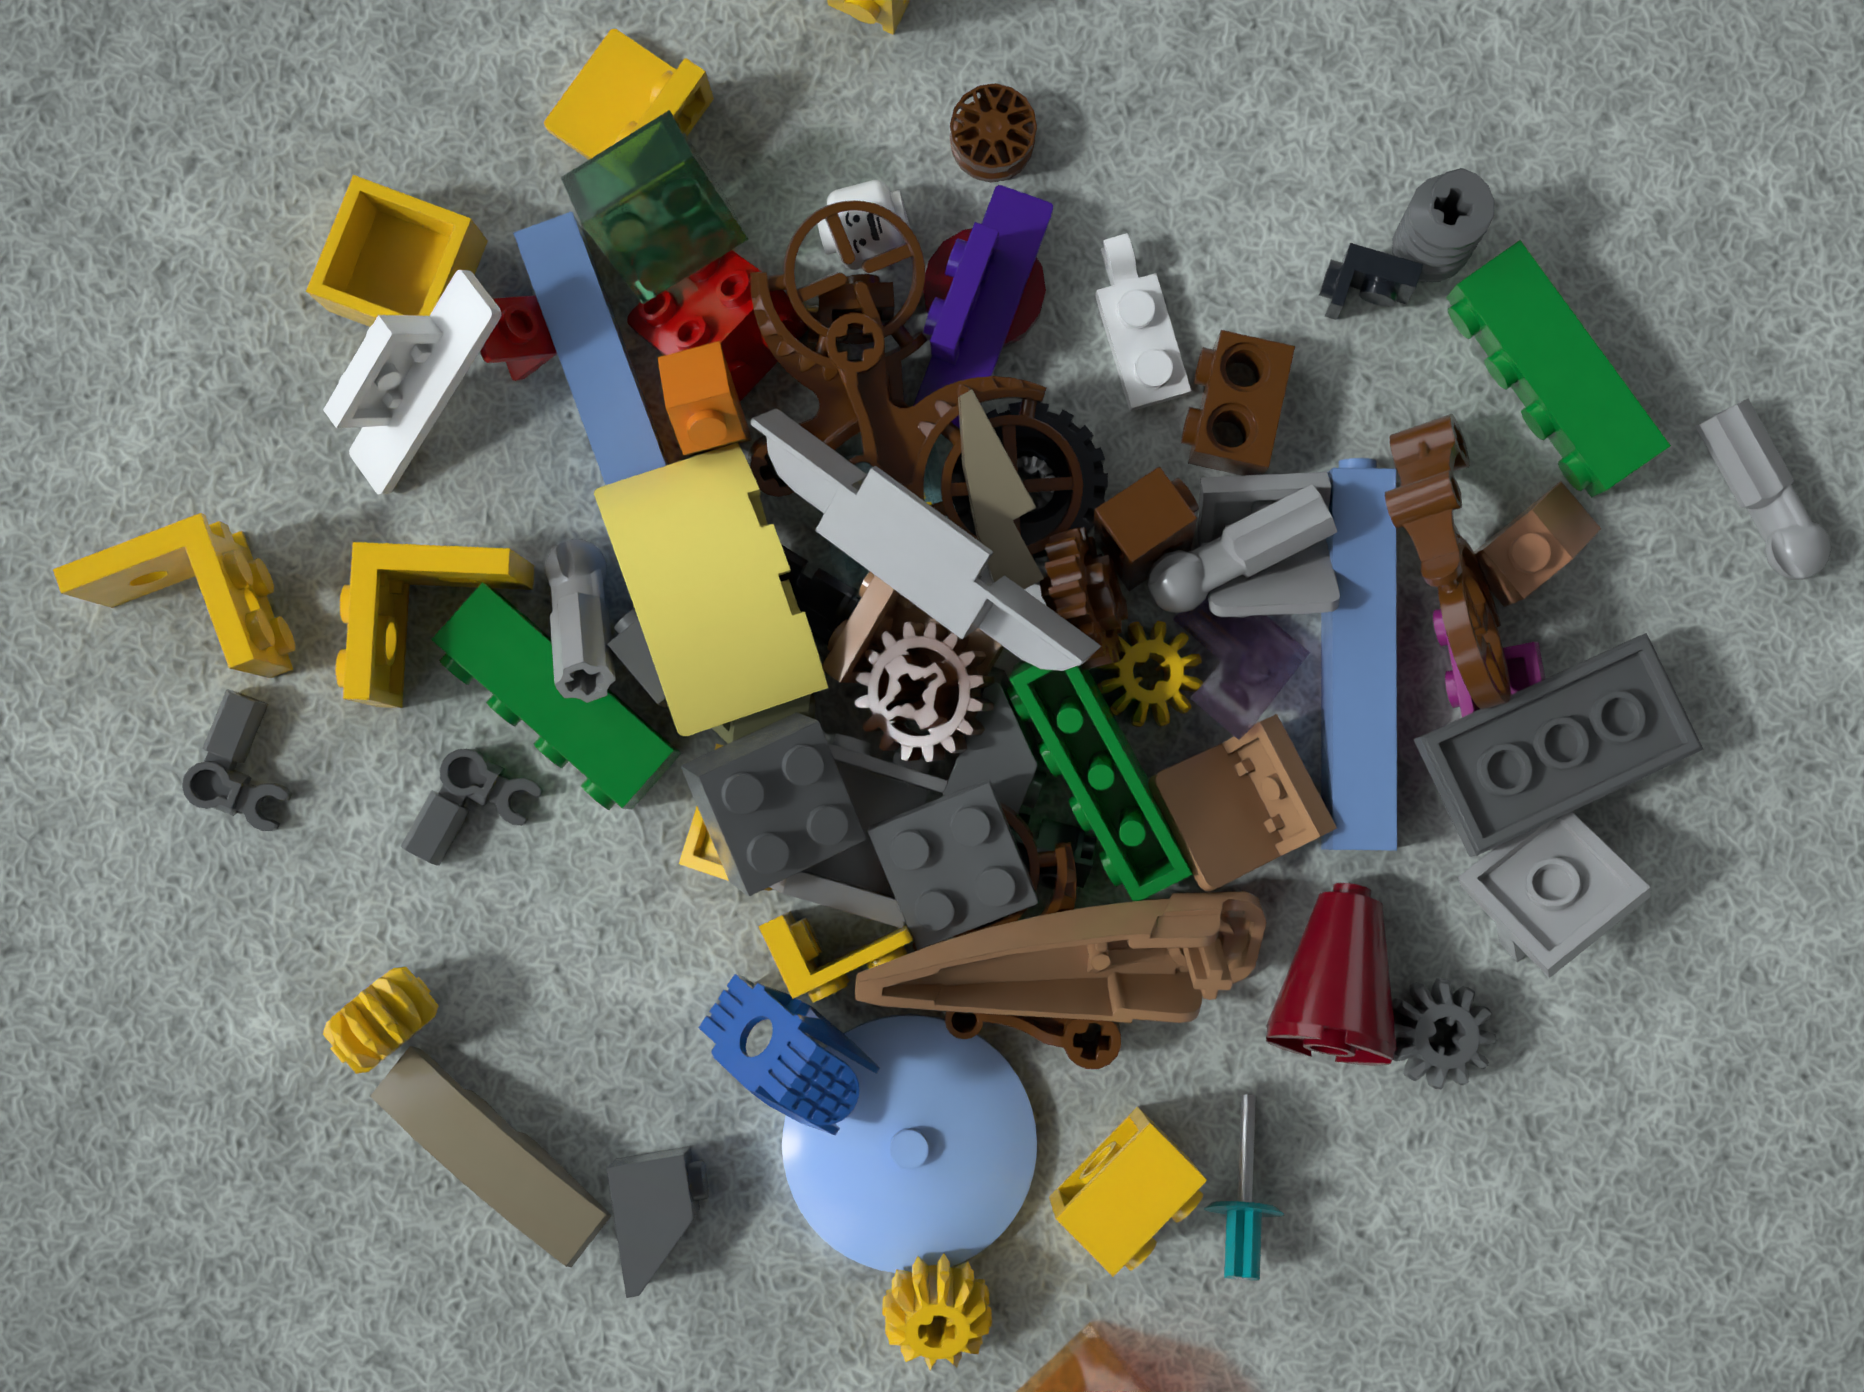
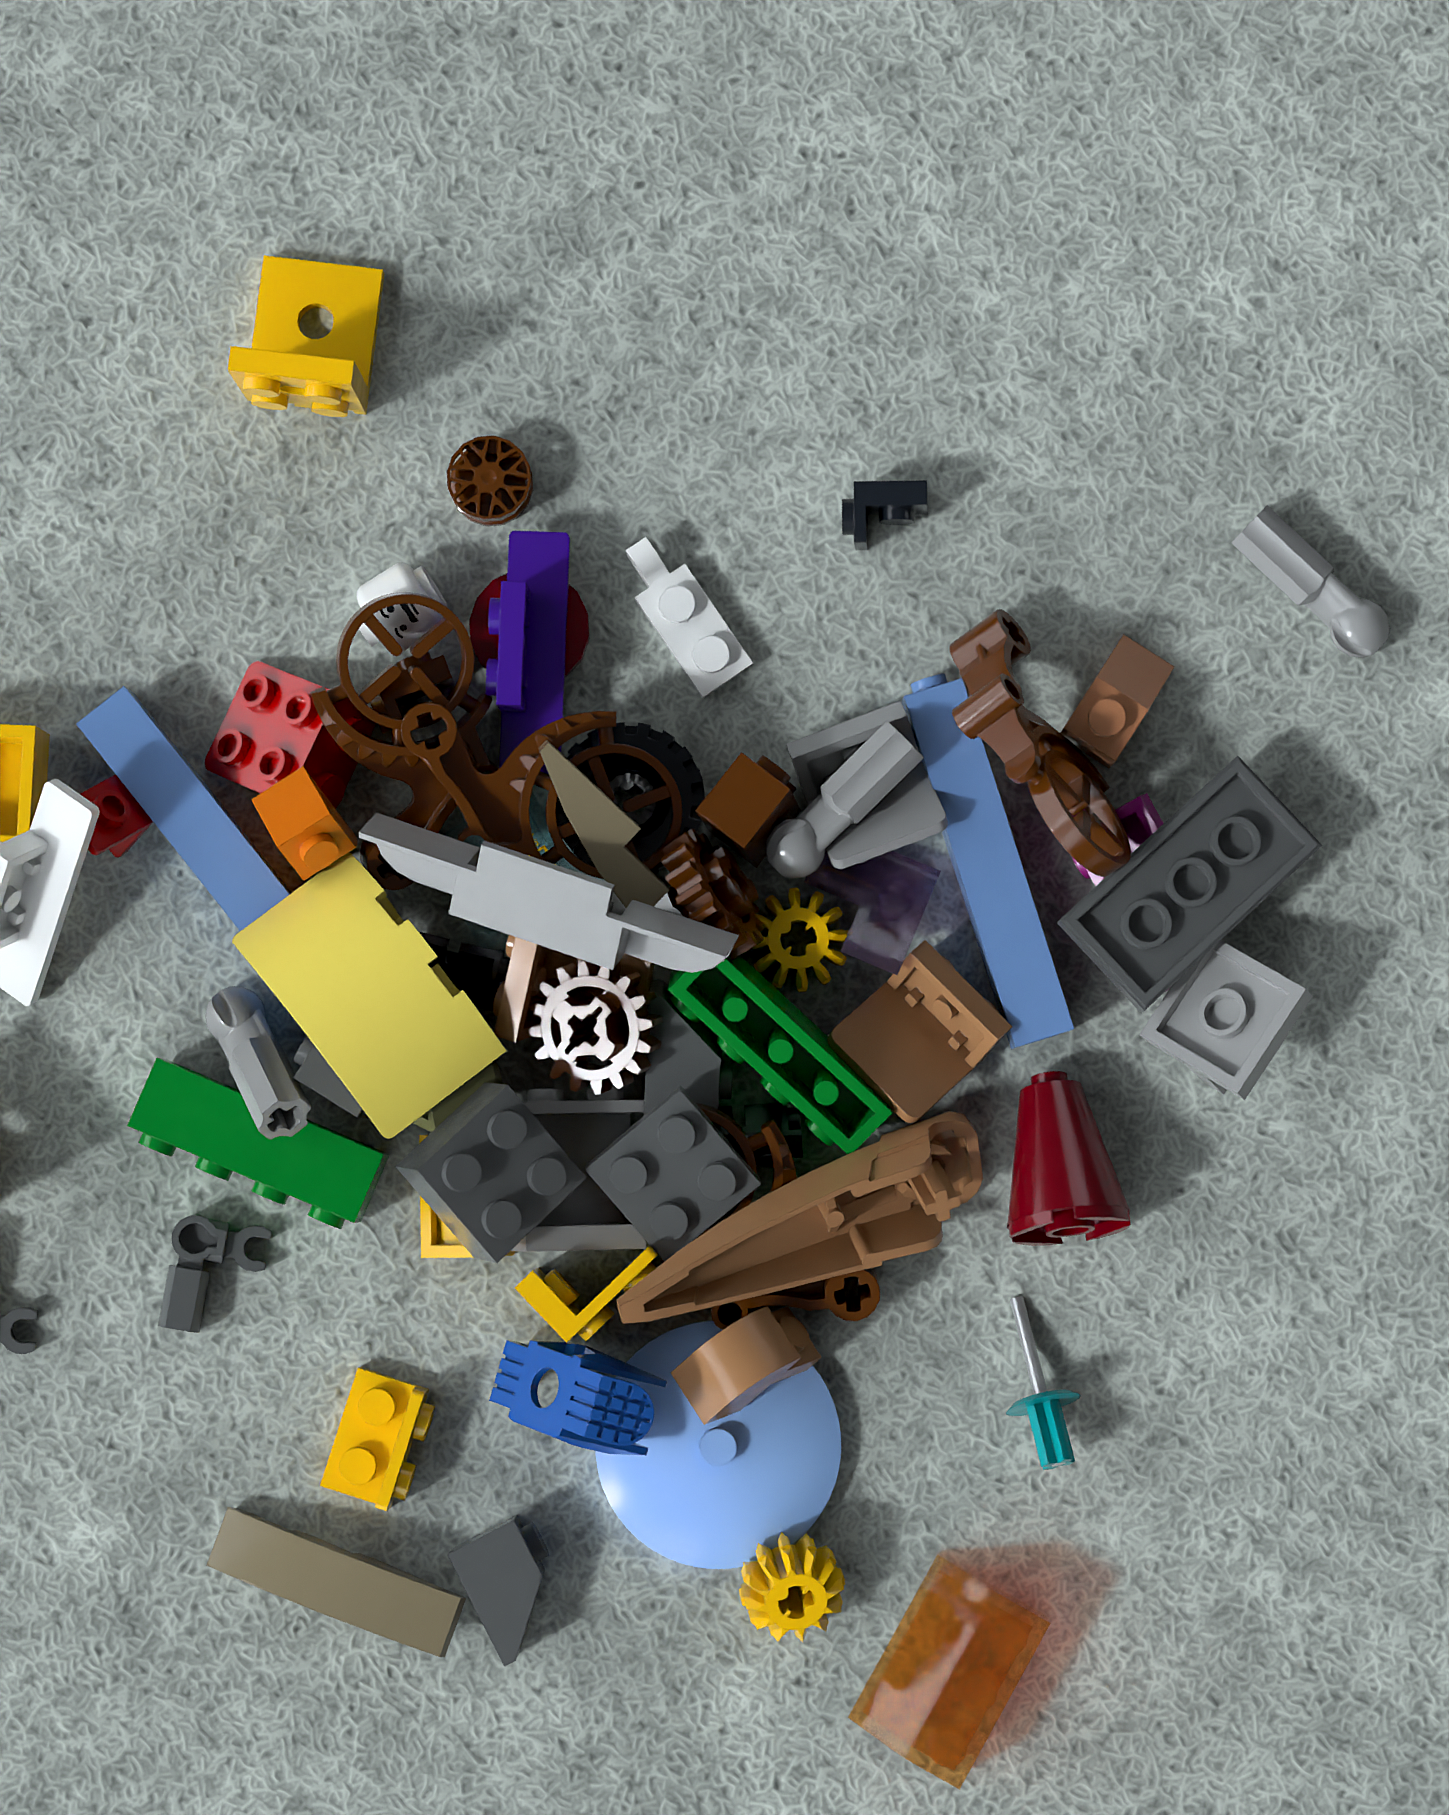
camera: 15 degrees left, 0 degrees up
(378, 604) = (66, 1110): yellow bracket -> none
(380, 1019) = (195, 1489): yellow gear -> none
(577, 1026) = (376, 1439): none -> yellow bracket
(622, 92) = (142, 569): yellow bracket -> none
(654, 207) = (201, 660): clear green piece -> none
(963, 1075) = (744, 1361): none -> medium nougat brick
(1127, 1193) = (928, 1420): yellow brick -> none
(1250, 408) = (814, 662): reddish brown brick -> none
(1444, 223) = (935, 415): dark grey piece -> none
(1460, 1040) = (1191, 1183): dark grey gear -> none
(1555, 371) = (1081, 537): green brick -> none

